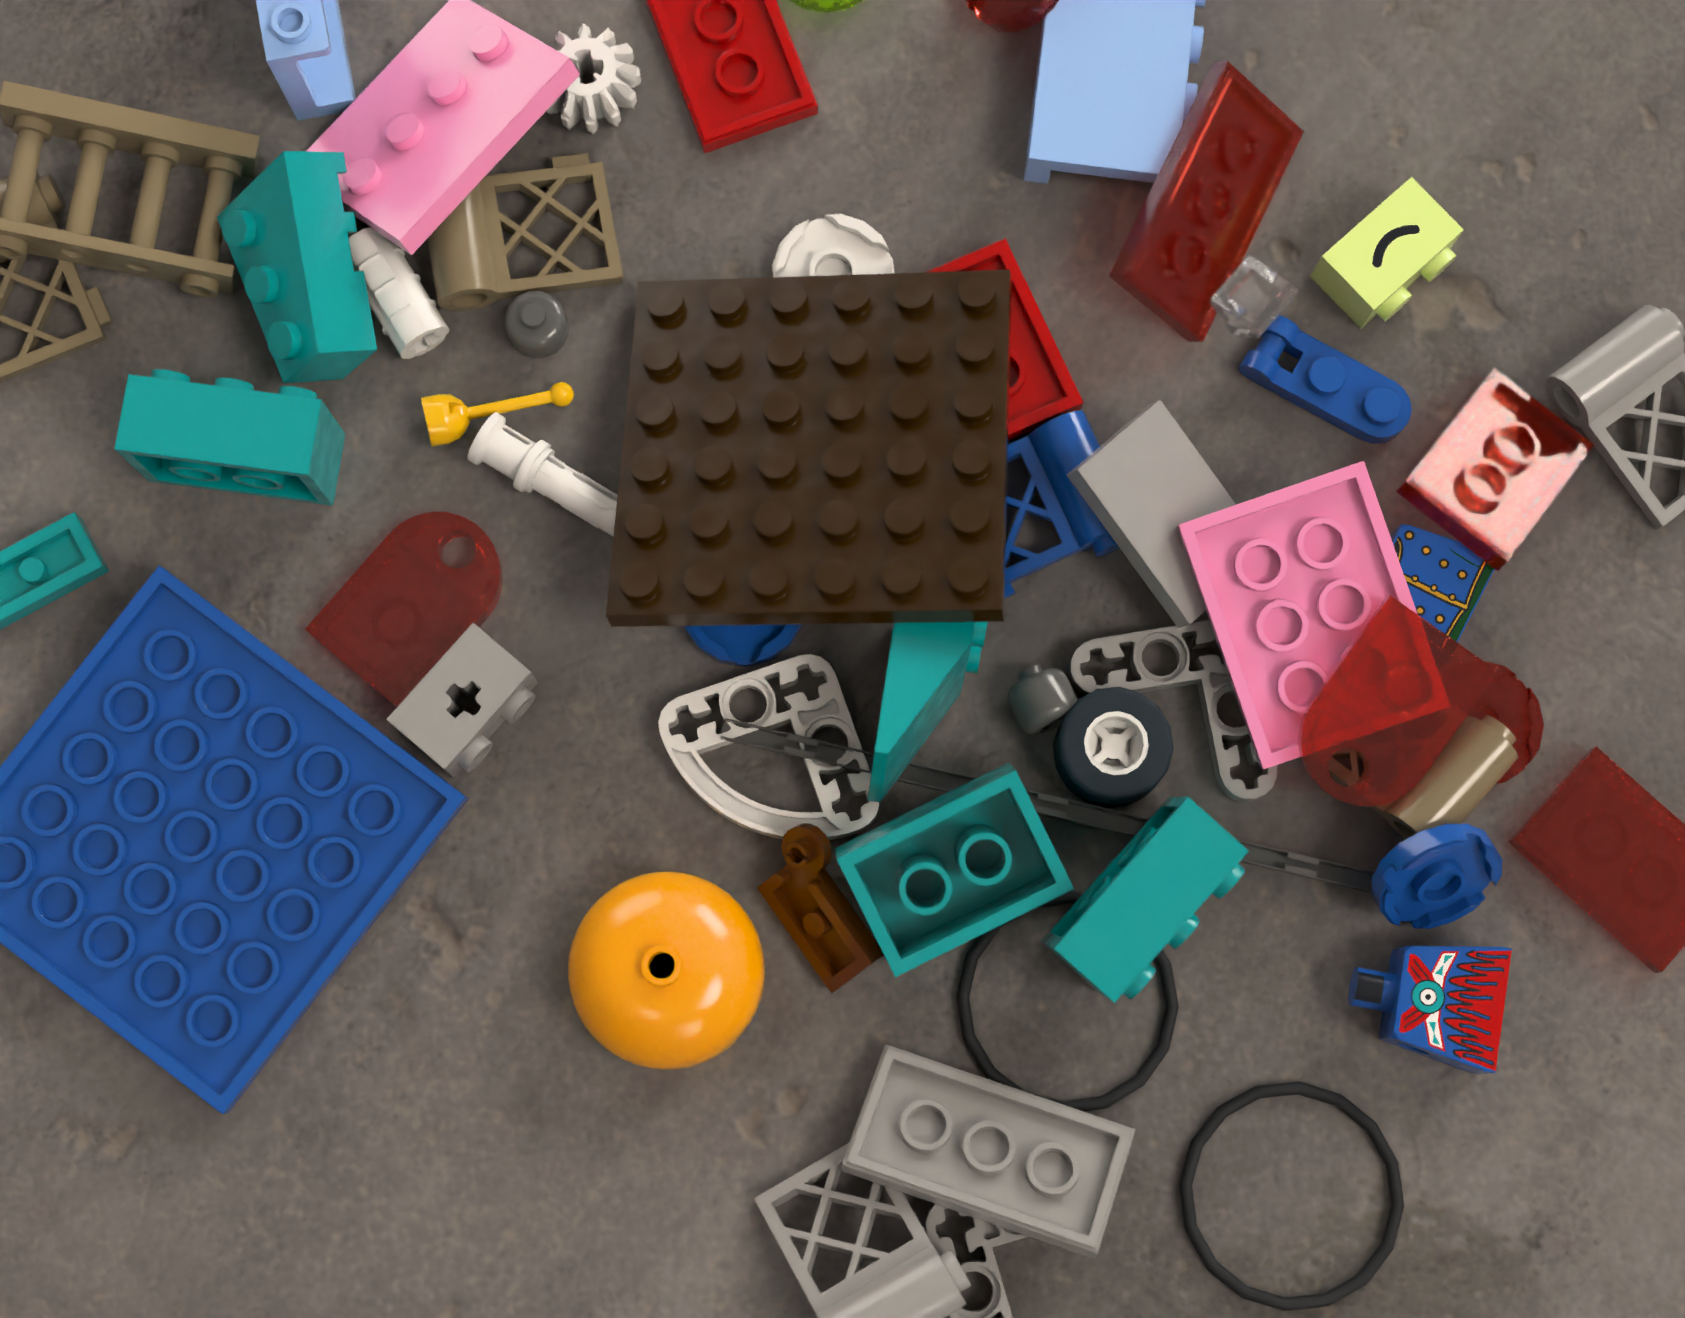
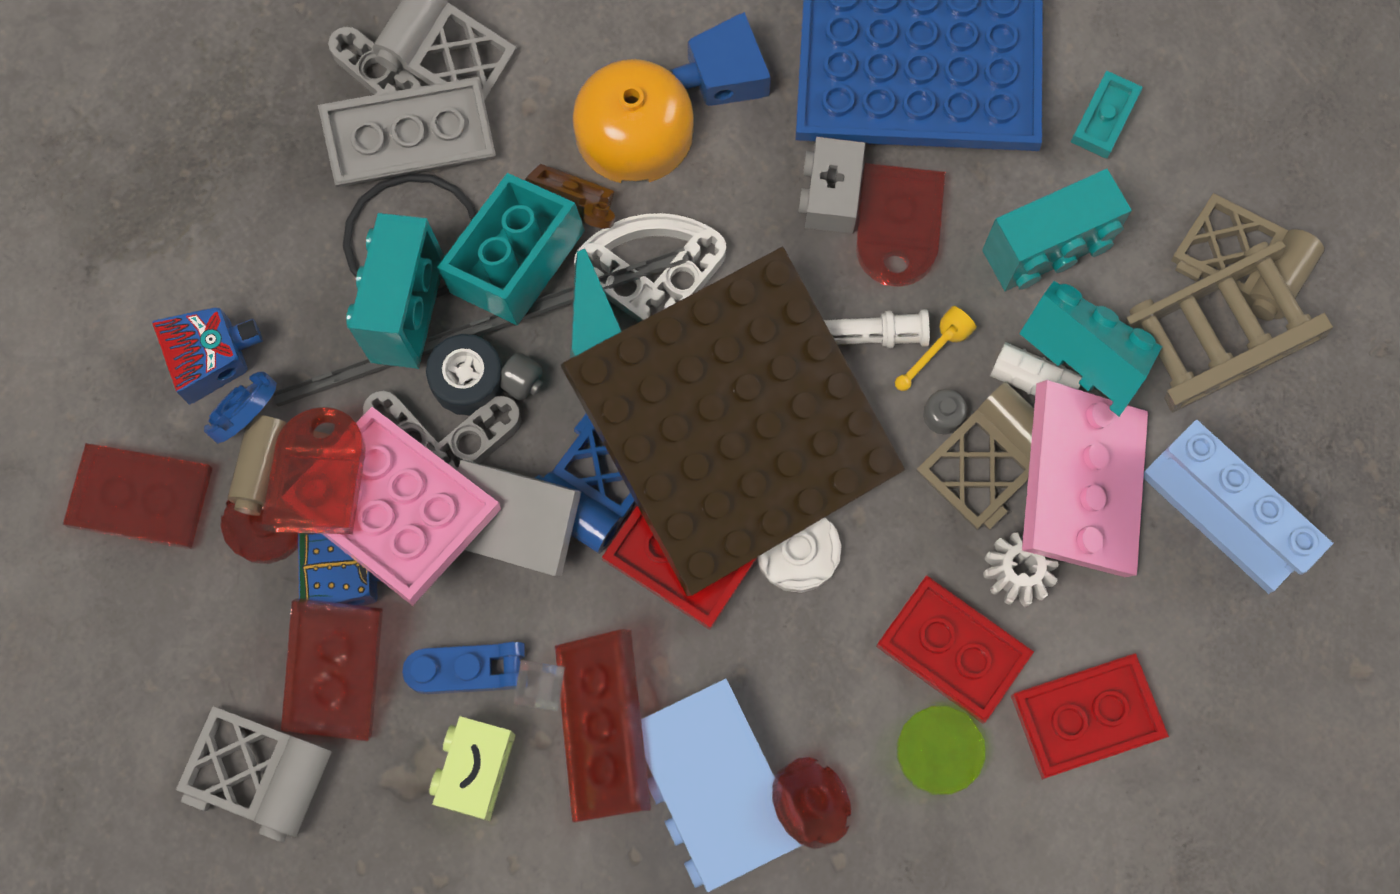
camera: 150 degrees right, 5 degrees down
(486, 973) = (726, 64): none -> blue torso
(1201, 1246) = (247, 271): black piece -> none

